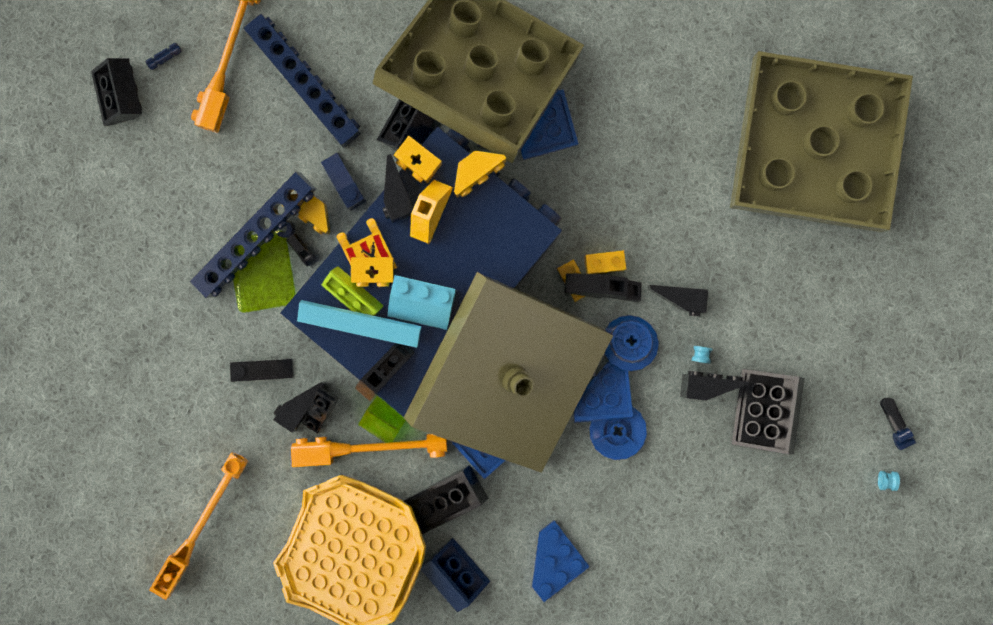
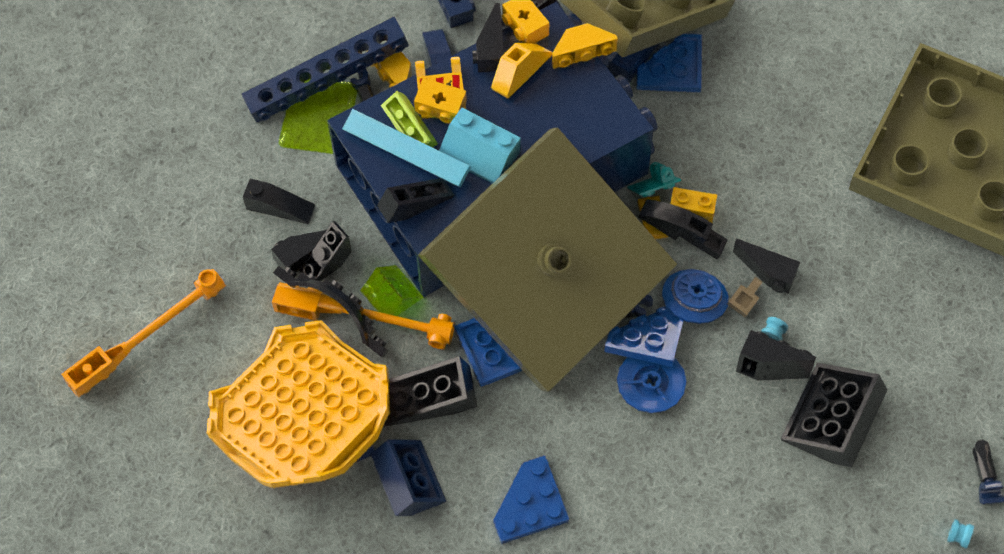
camera: 25 degrees right, 25 degrees down
(344, 449) = (350, 303): none -> black piece
(567, 252) = (661, 178): none -> teal hinge
(670, 333) = (744, 298): none -> dark tan plate

